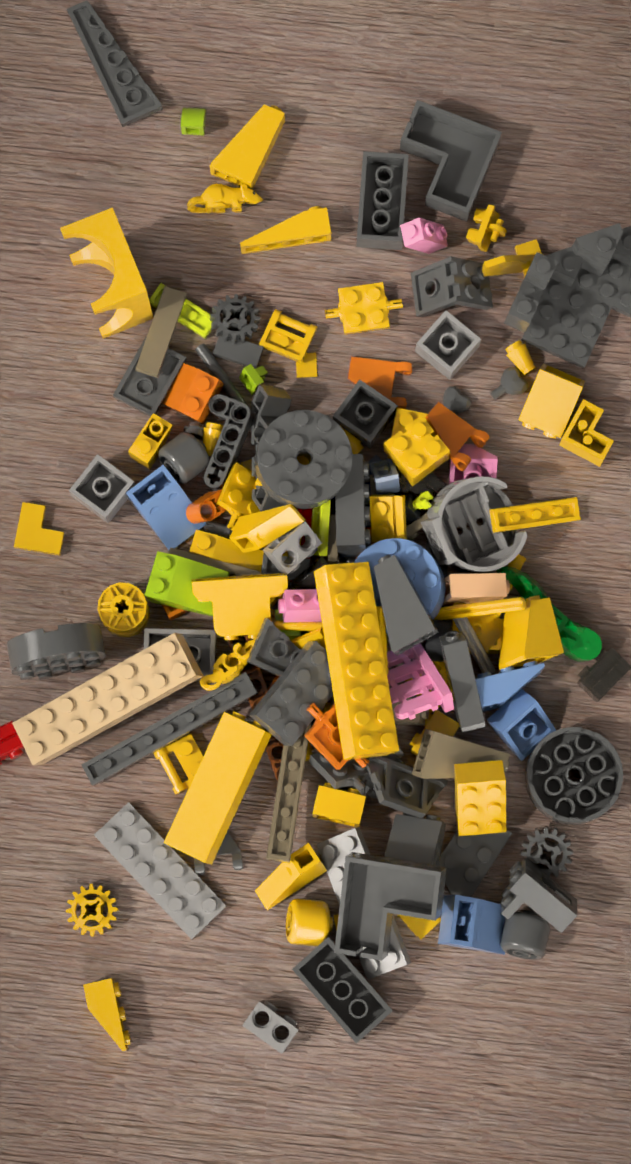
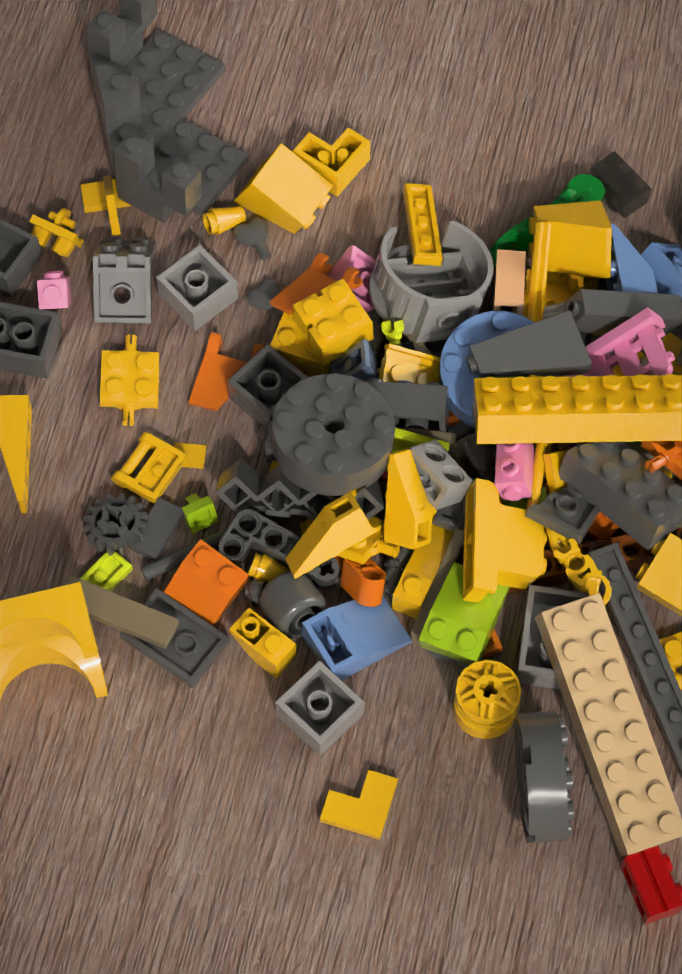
camera: 85 degrees left, 15 degrees down
(230, 473) = (332, 532): none -> yellow slope

